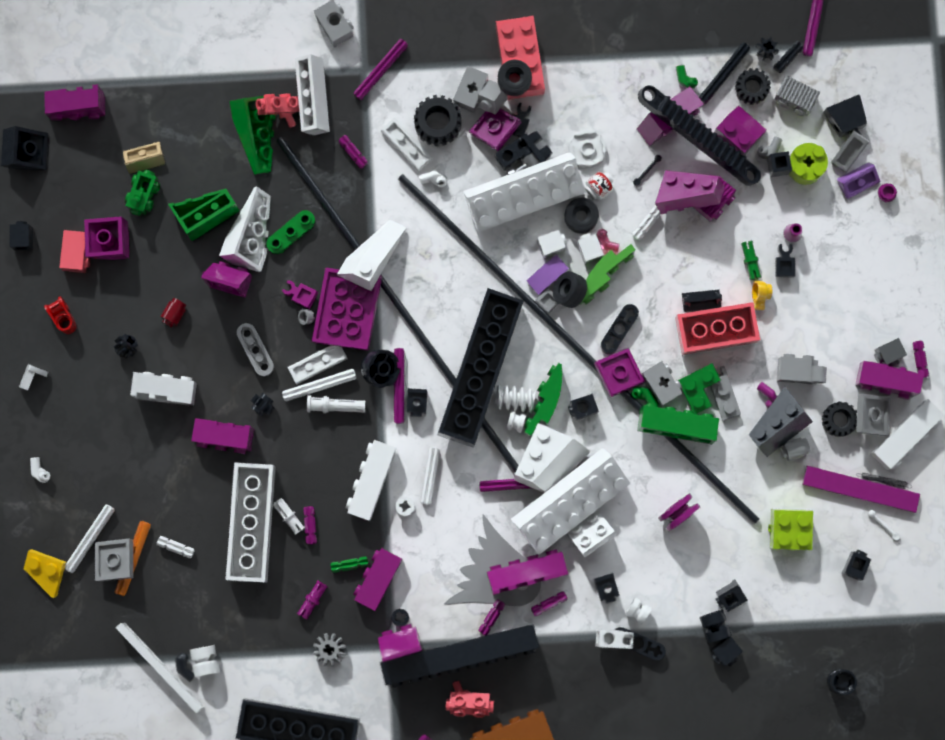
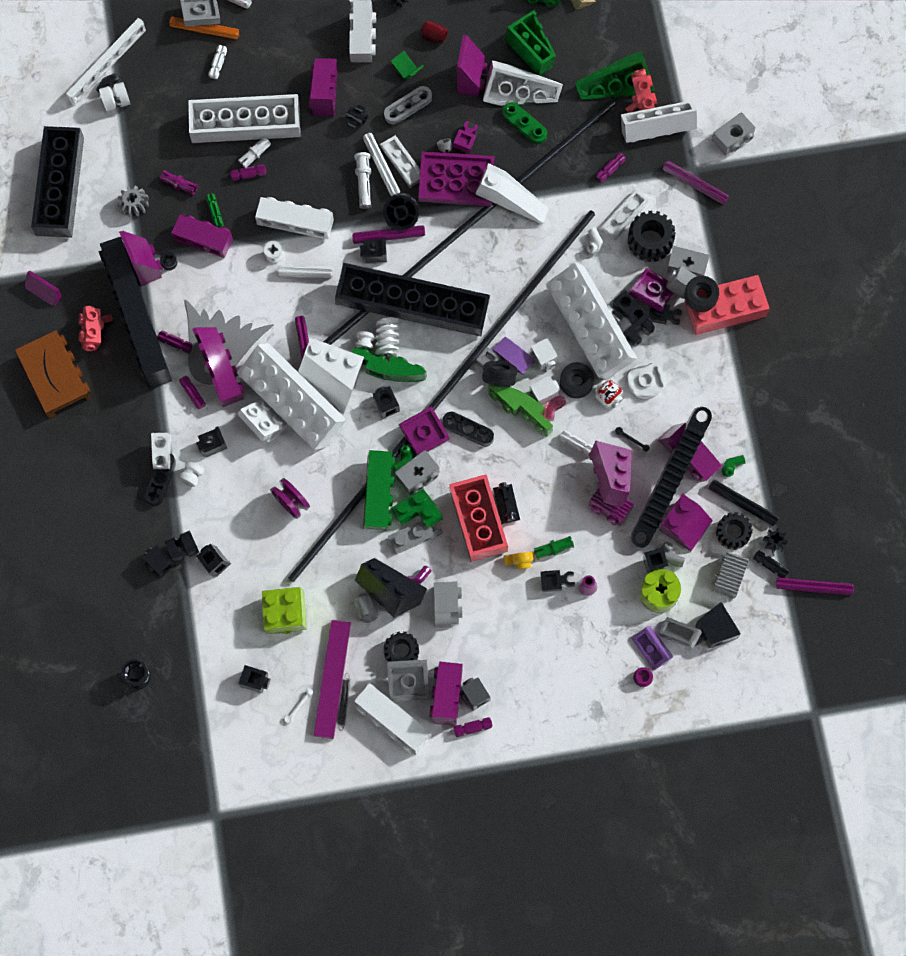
camera: 85 degrees right, 10 degrees down
(211, 347) = (405, 66): none -> green bracket

